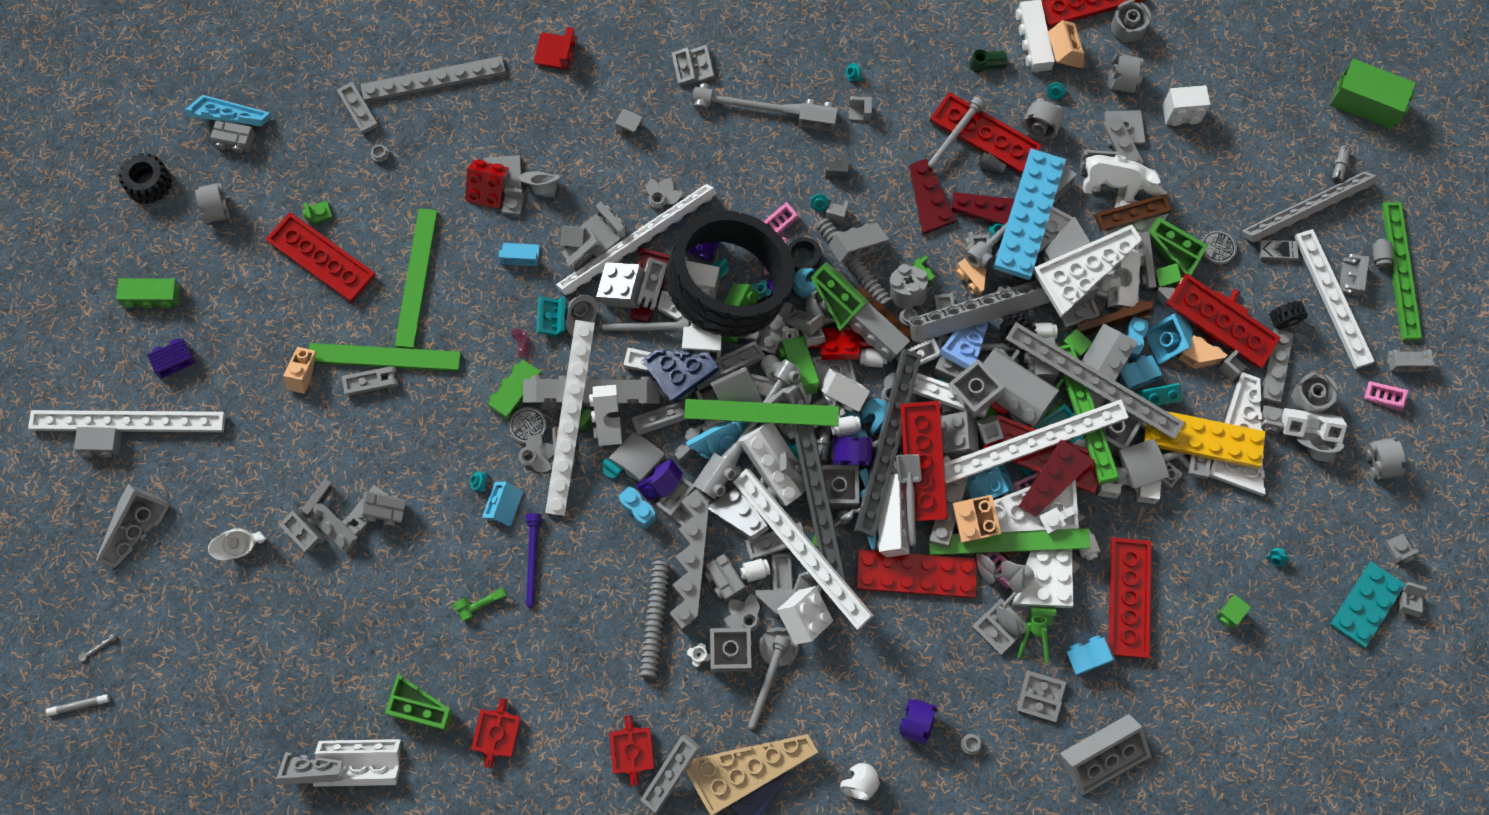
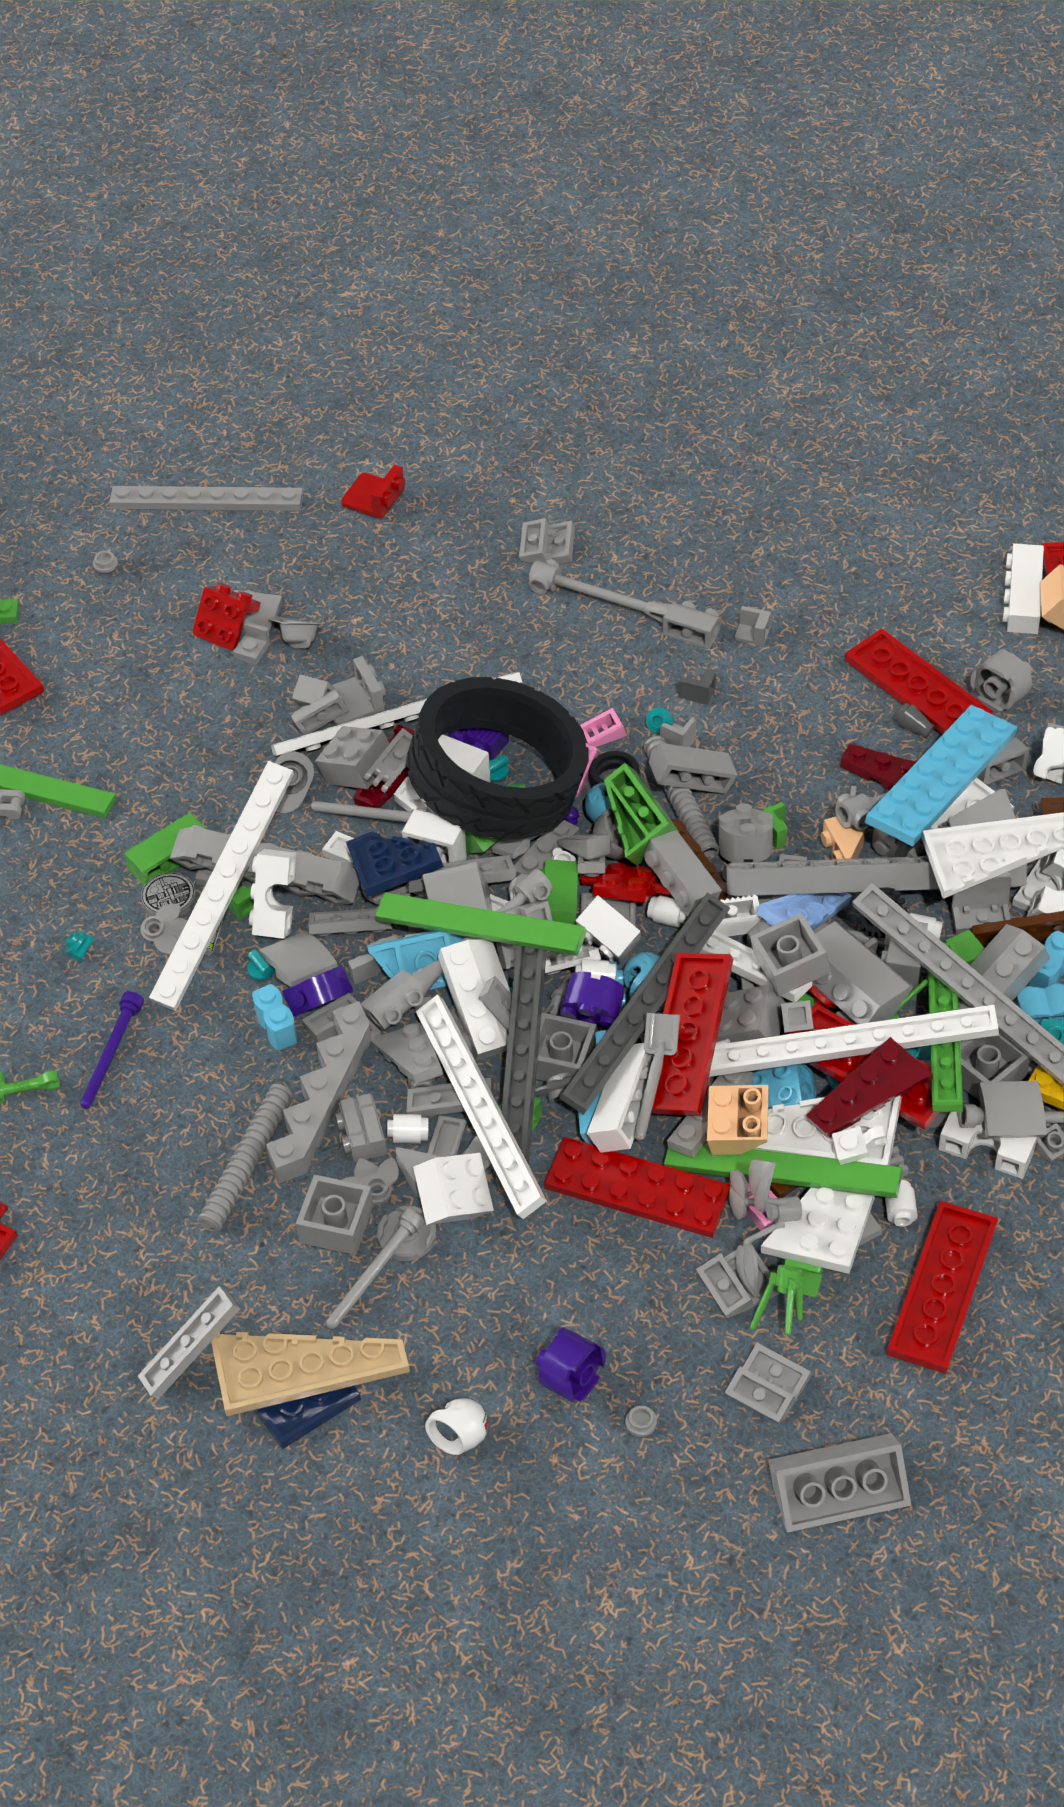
camera: 20 degrees right, 20 degrees down
(357, 108) = (98, 510): light grey plate -> none
(416, 279) = (93, 704): bright green tile -> none
(503, 503) = (99, 976): medium azure panel -> none
(519, 254) = (235, 704): medium azure panel -> none
(522, 339) = (201, 798): clear pink arm -> none
(551, 316) = (245, 775): teal bracket -> none
(628, 121) = (435, 582): light grey panel -> none
(631, 750) = (150, 1310): red plate -> none
(663, 191) = (449, 670): light grey plate -> none
(693, 654) = (286, 1209): white plate -> none
(853, 72) = (759, 586): teal plate -> none
(931, 203) = (815, 749): dark red wing -> none
(976, 106) = (913, 646): light grey piece -> none
(988, 60) = (940, 602): dark green piece -> none
(1056, 91) = (1035, 655): teal plate -> none
(1091, 655) = (858, 1343): medium azure brick -> none

